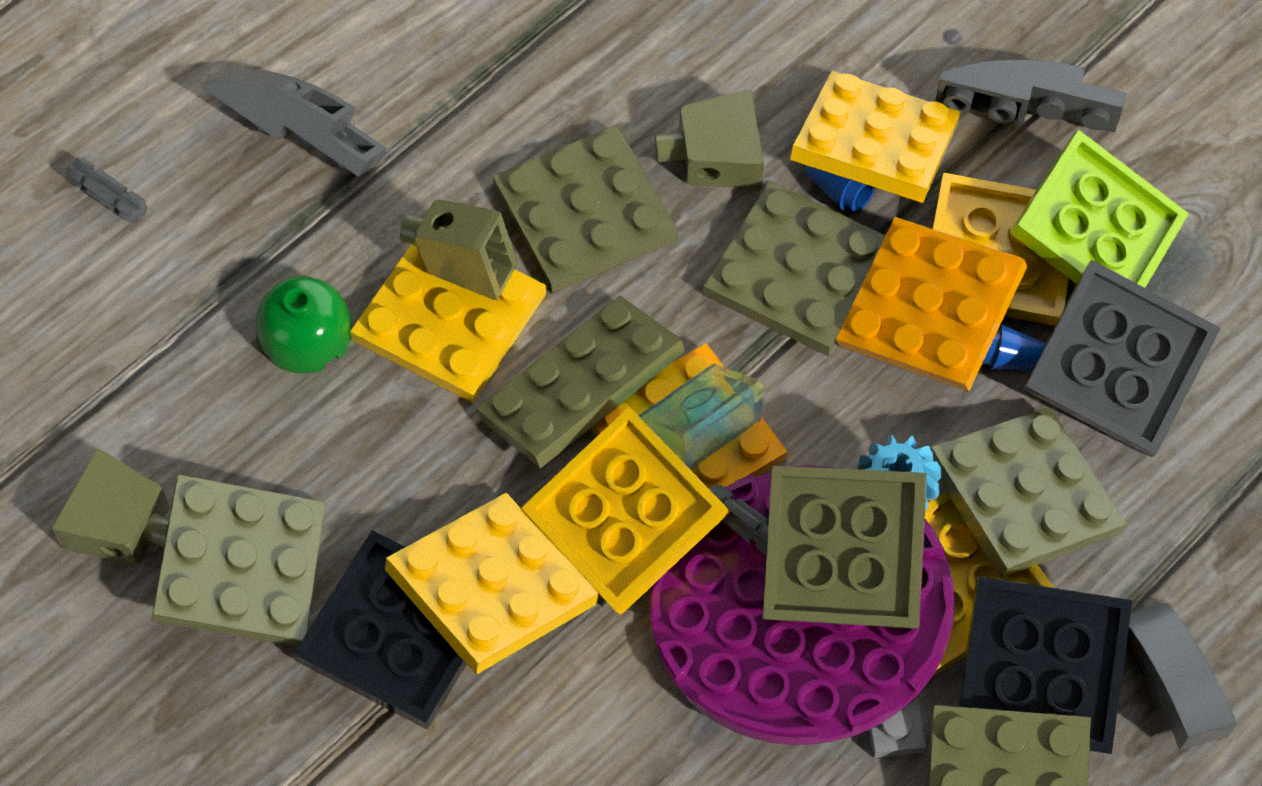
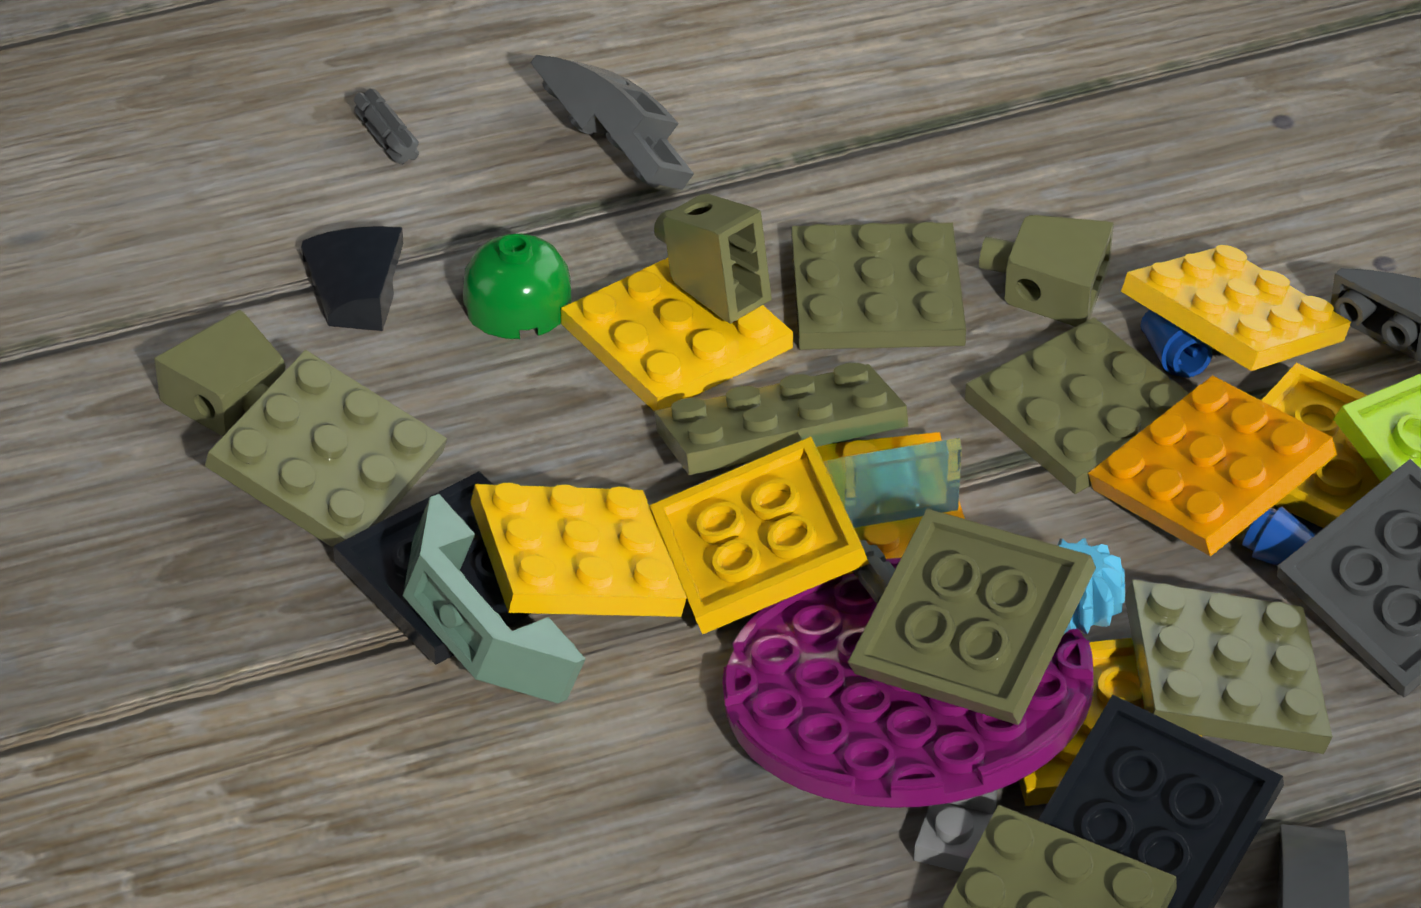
camera: 25 degrees right, 20 degrees down
(160, 359) = (354, 274): none -> black slope
(453, 701) = (525, 660): none -> sand green slope

